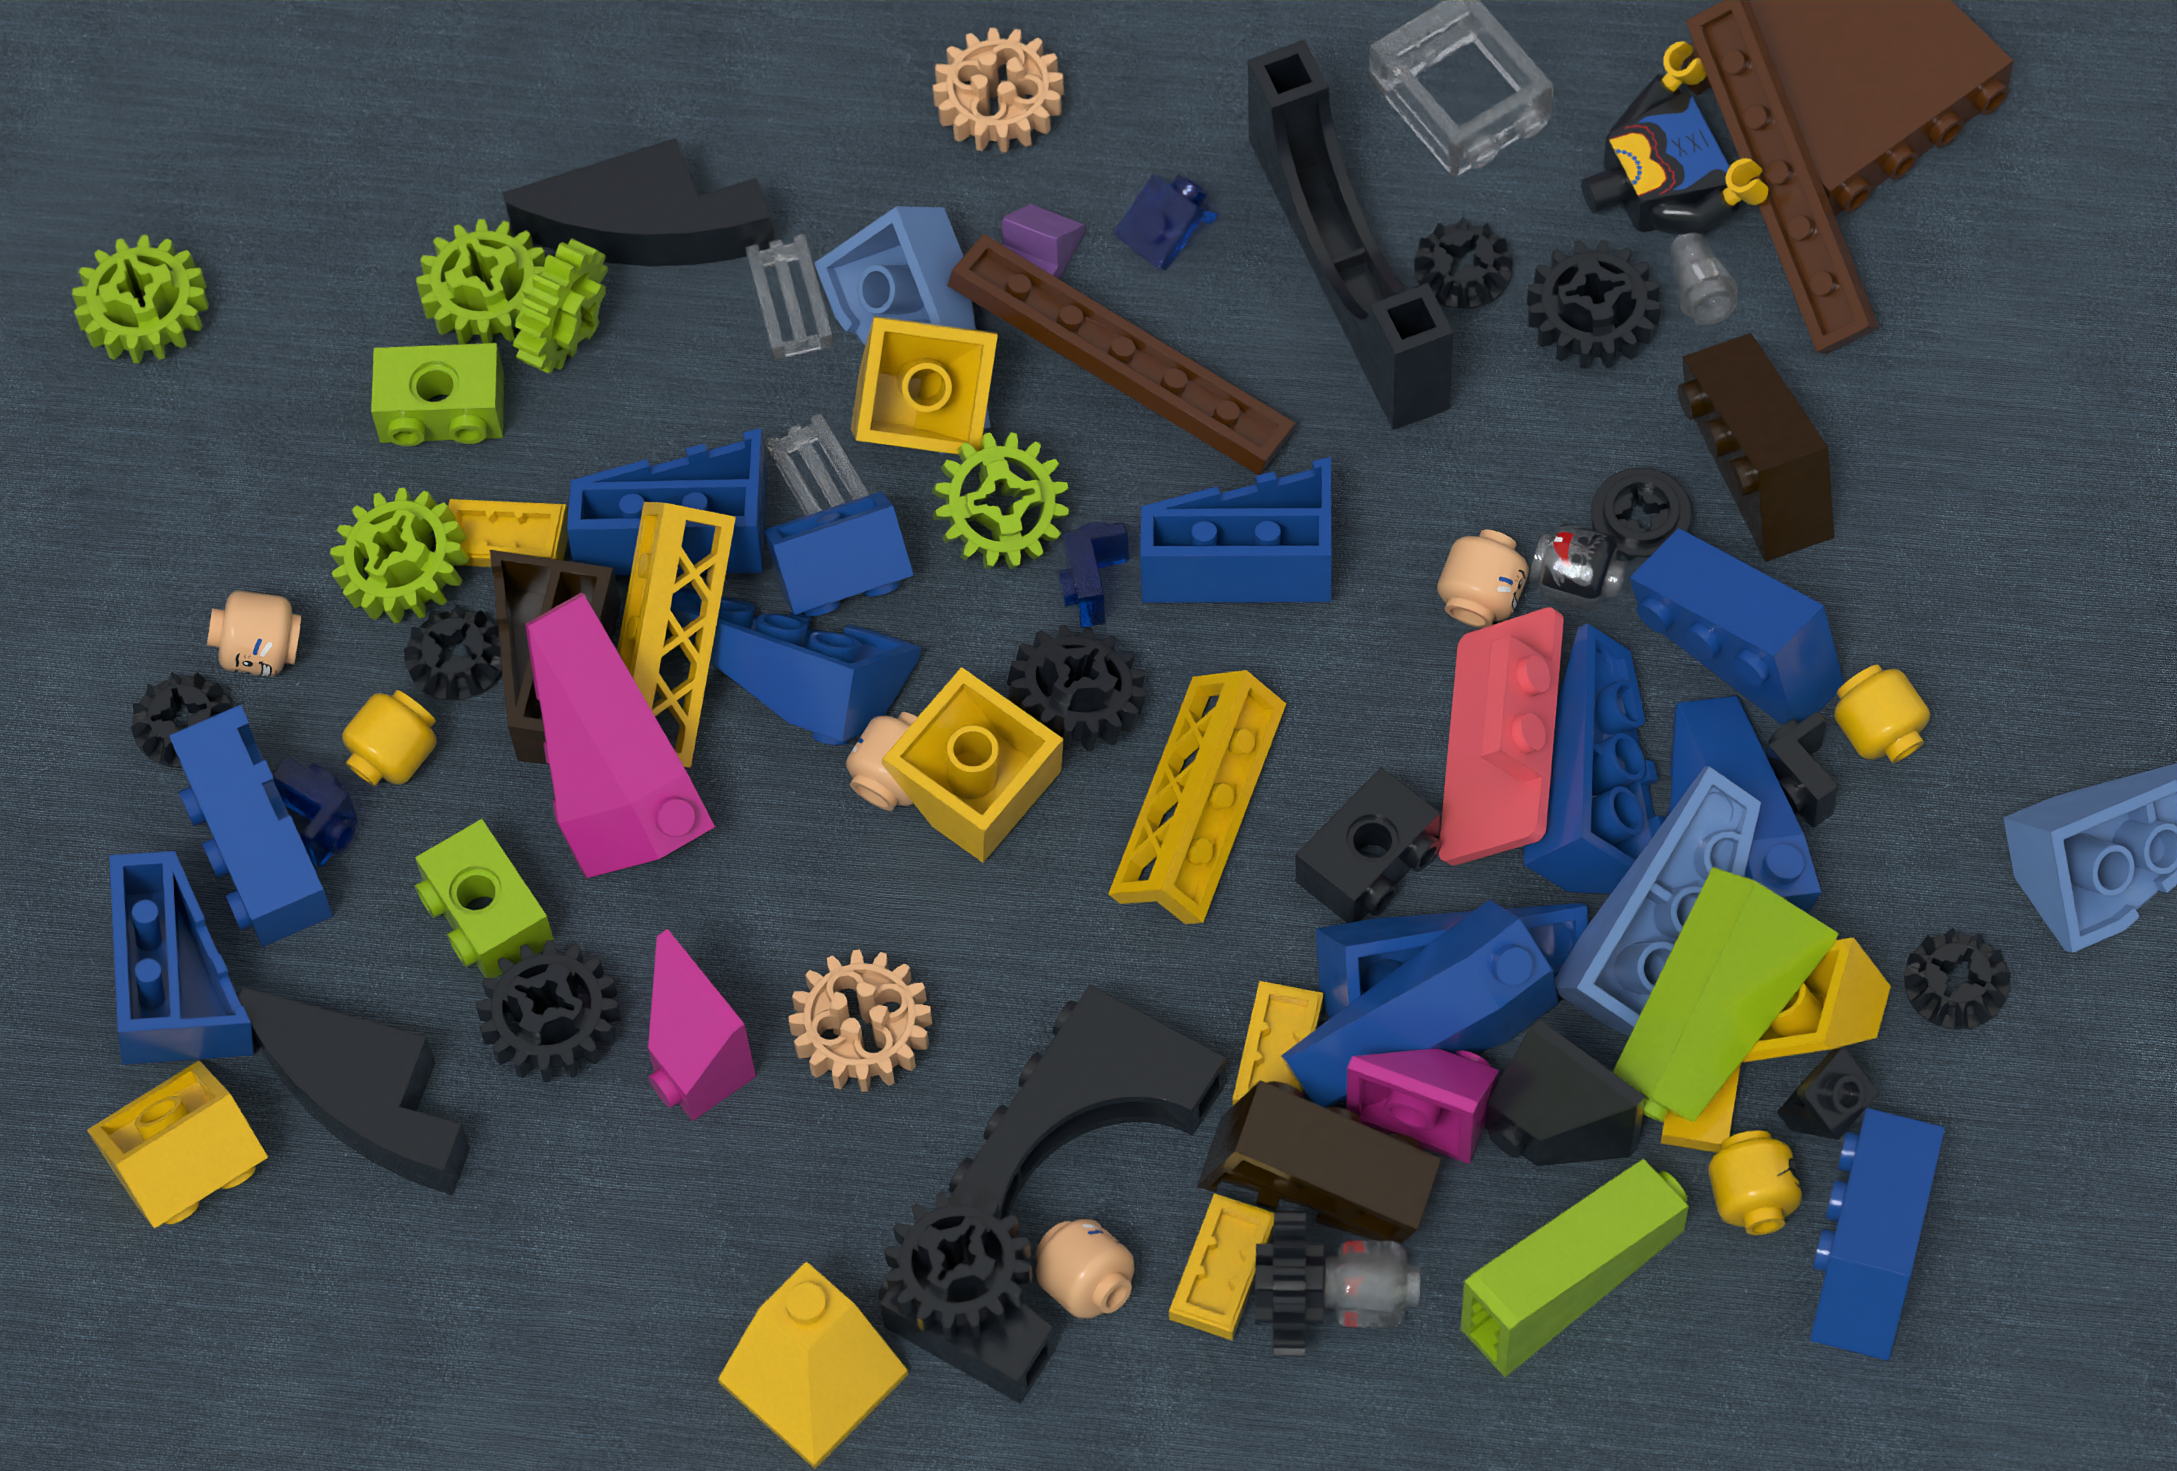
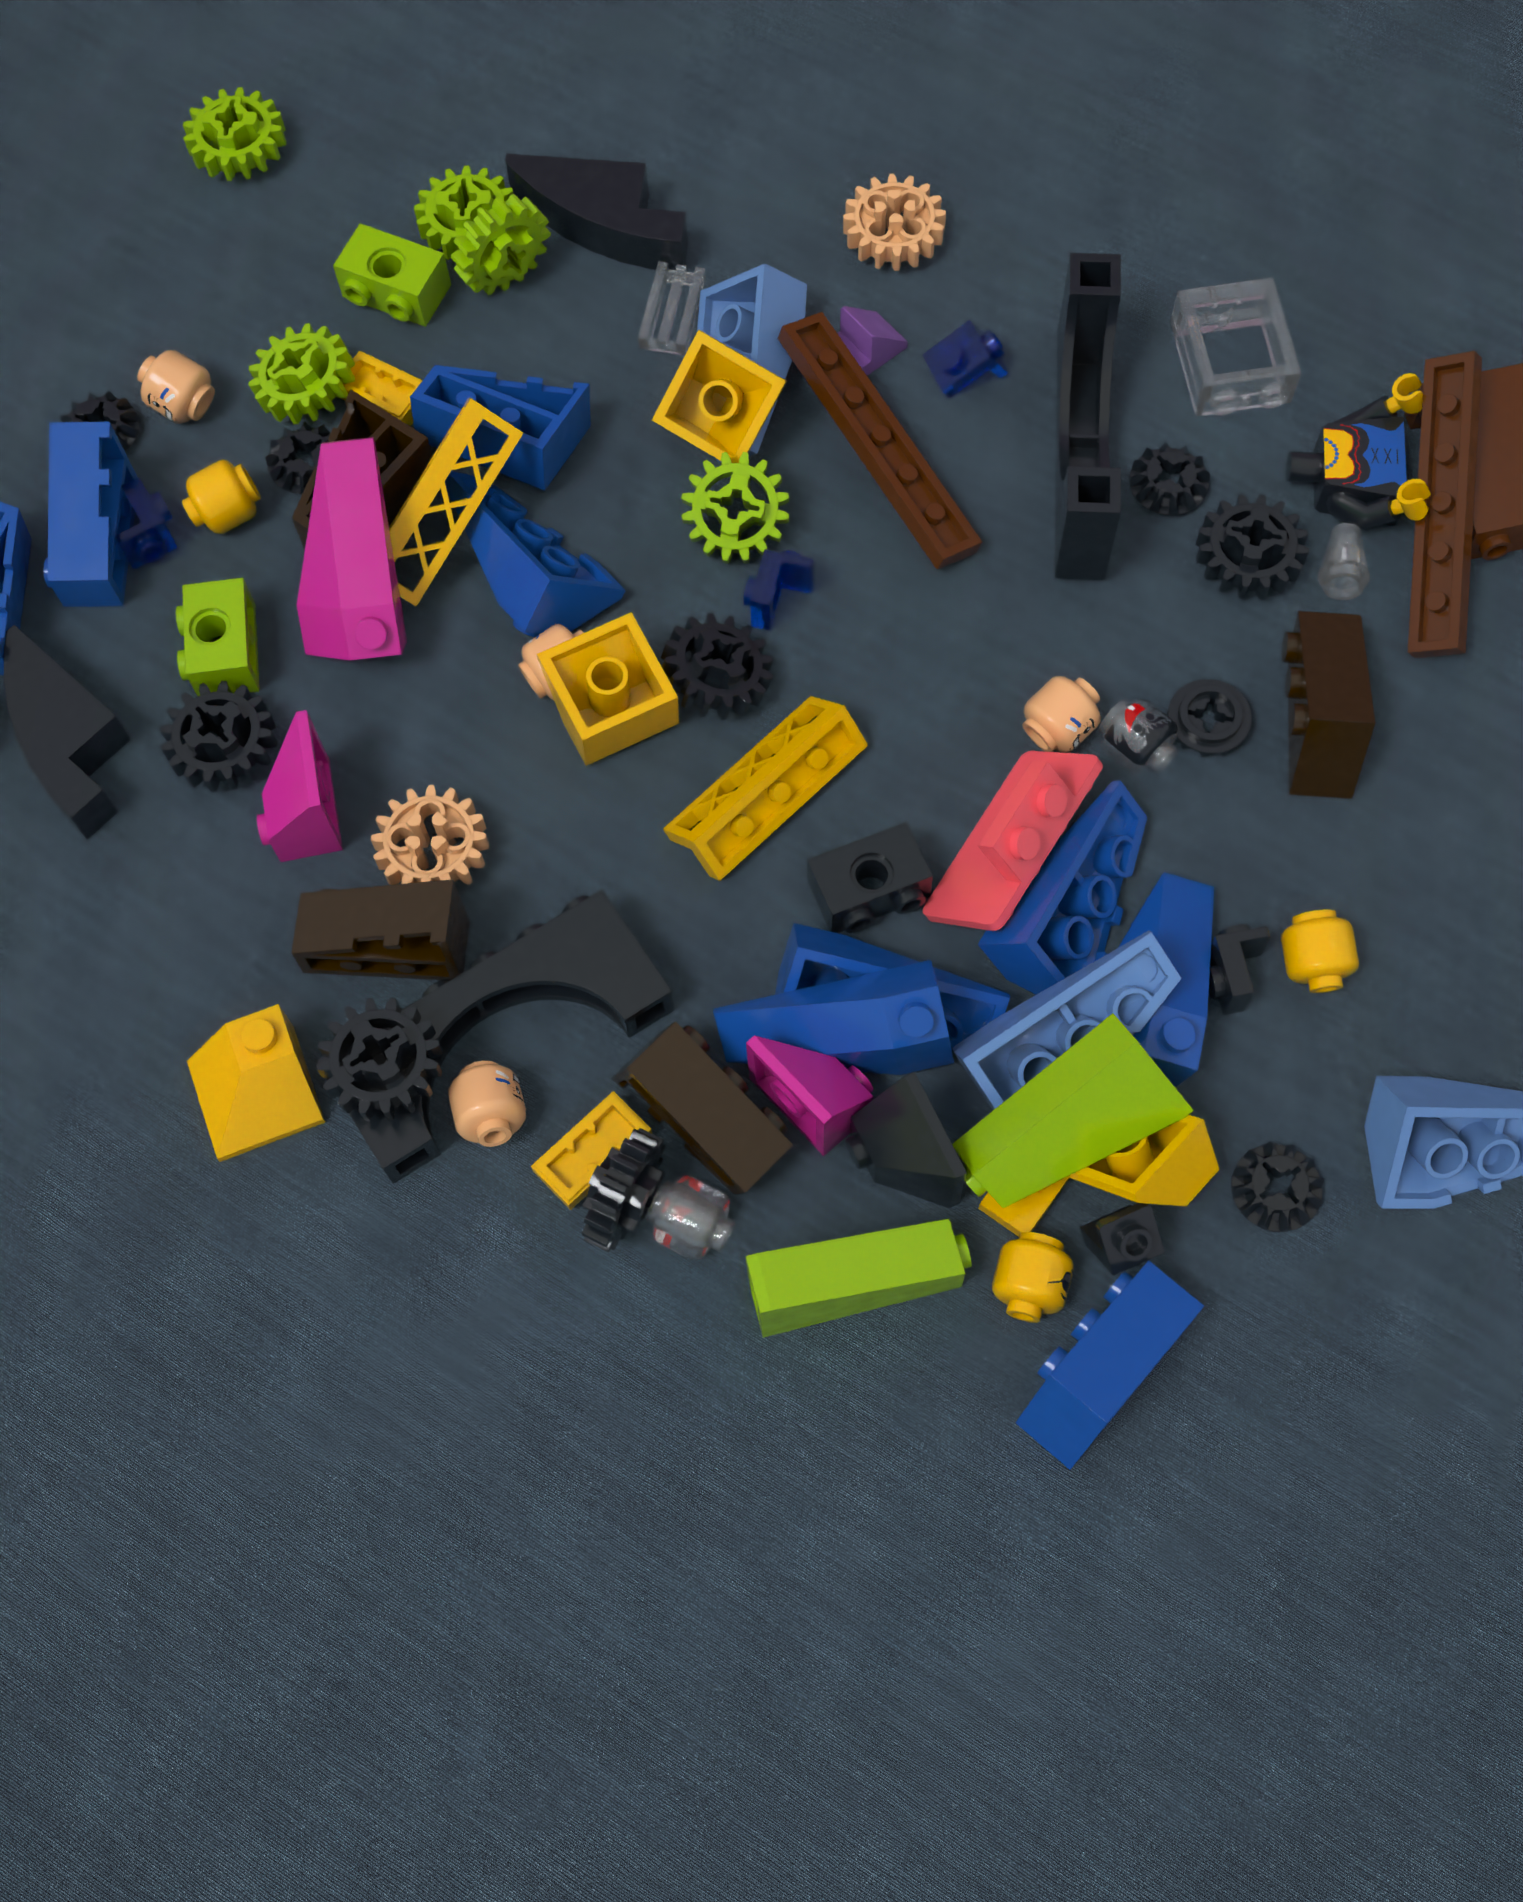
camera: 25 degrees right, 5 degrees up
(801, 440) = (623, 411): clear tile -> none
(839, 554) = (598, 498): blue brick -> none
(869, 1137) = (383, 931): none -> dark brown wedge
(1241, 543) = (894, 612): blue wedge -> none
(1277, 1023) = (733, 980): yellow plate -> none
(1740, 626) = (1242, 834): blue wedge -> none

